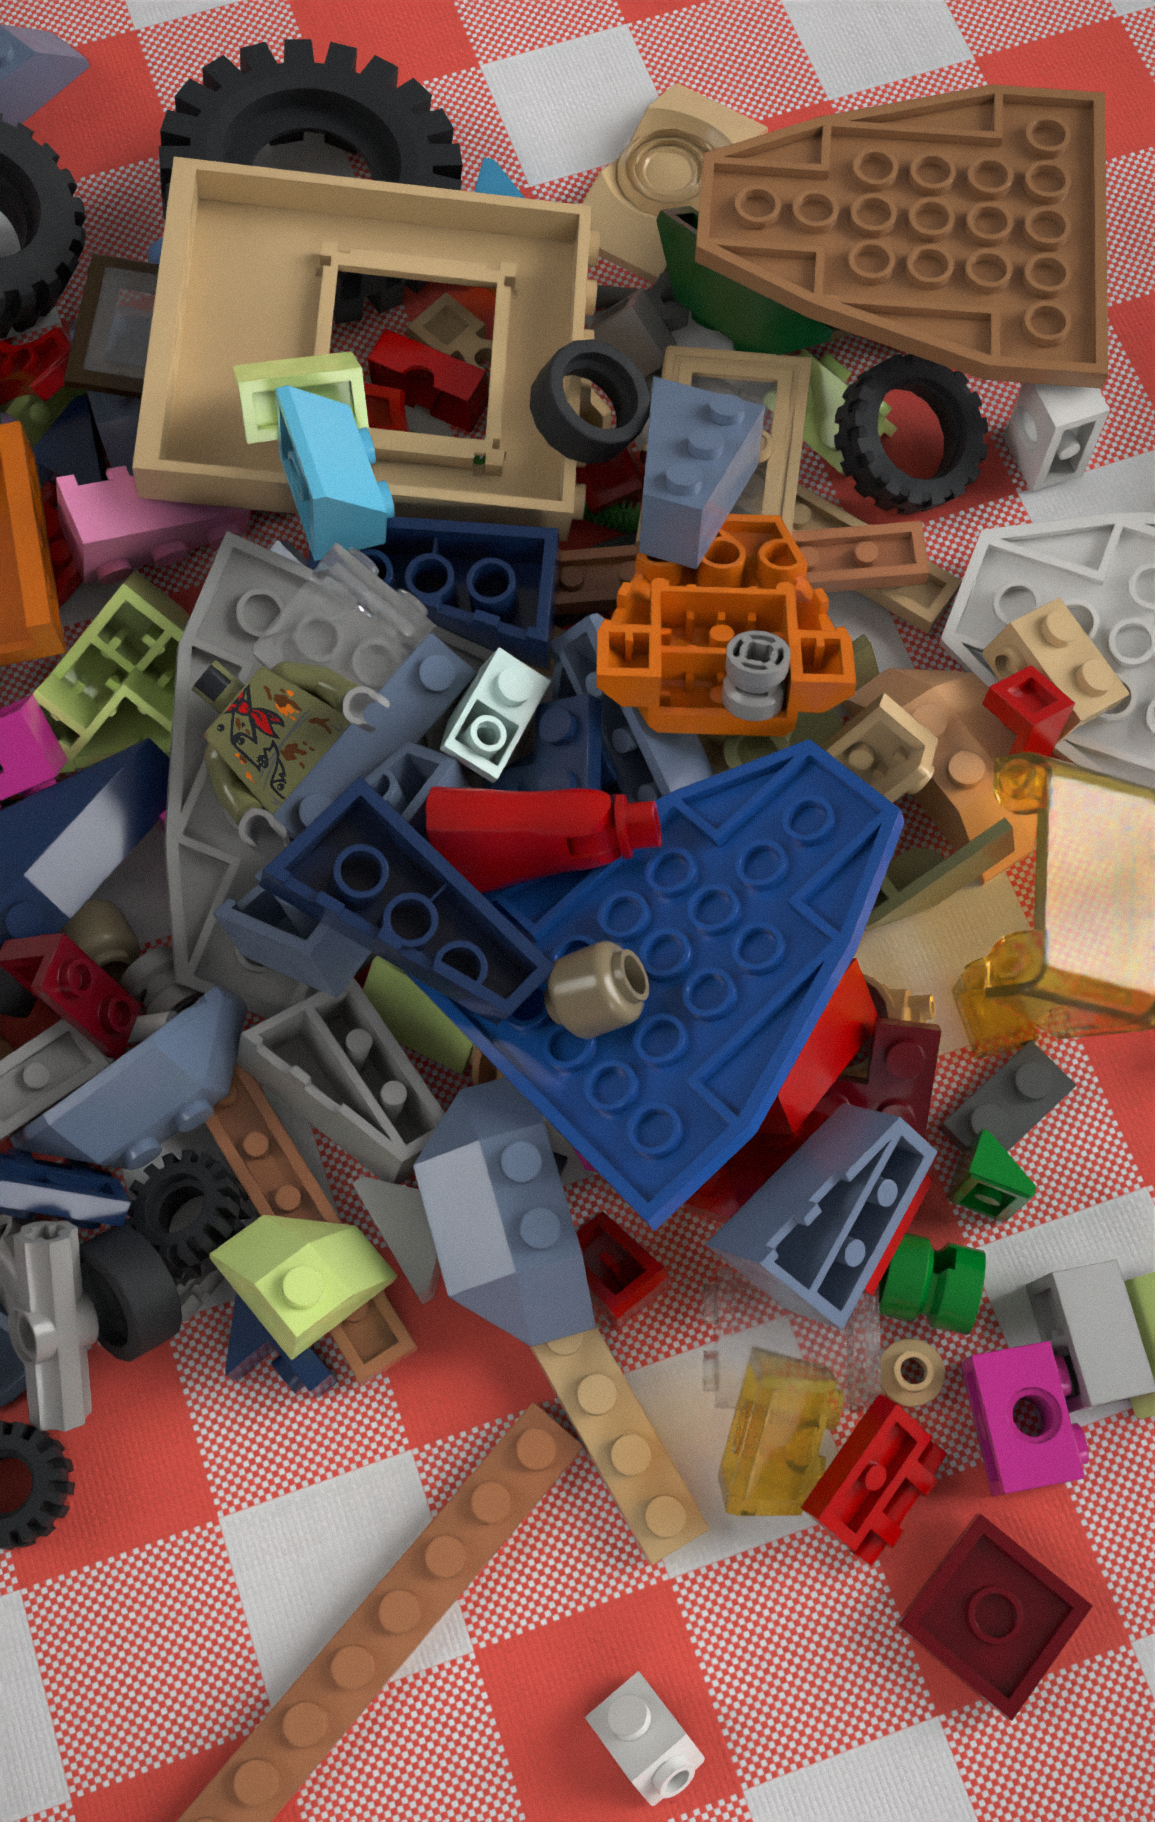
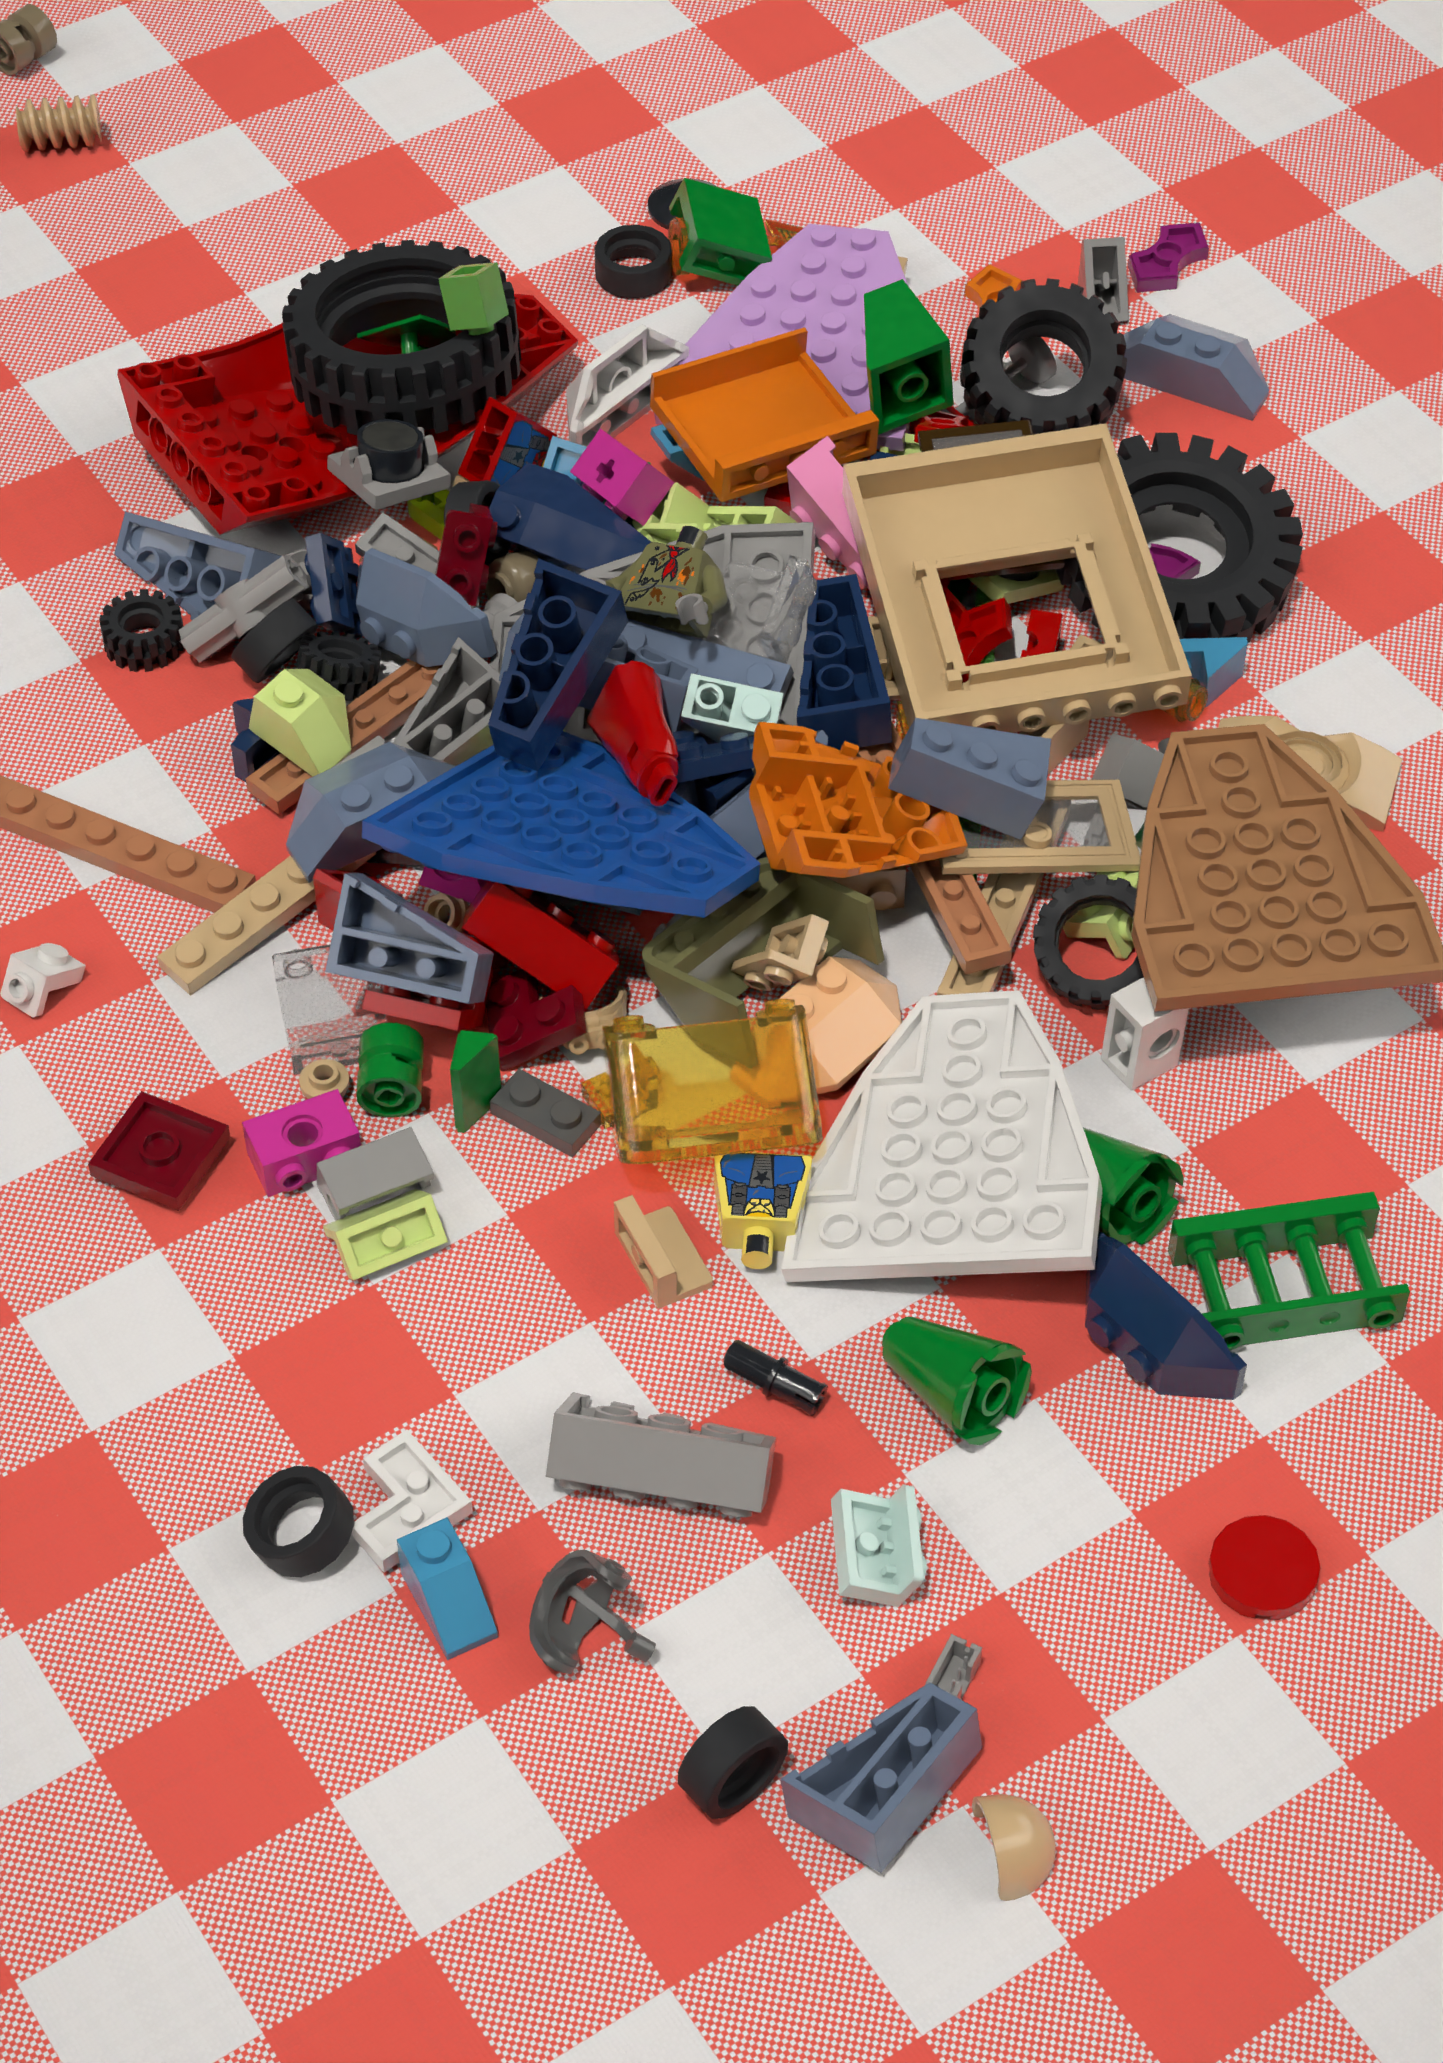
camera: 75 degrees right, 20 degrees down
(326, 375) = (934, 532): yellowish green panel -> none
(331, 472) = (866, 548): medium azure slope -> none
(596, 989) = (524, 773): dark tan head -> none
(615, 376) = (1014, 665): black tyre -> none
(755, 675) = (799, 810): light grey wheel -> none
(777, 1435) = (253, 980): clear yellow slope -> none
(875, 1480) = (239, 1042): red plate -> none
(1030, 709) = (848, 1028): red panel -> none
(1063, 654) = (910, 1055): tan bracket -> none

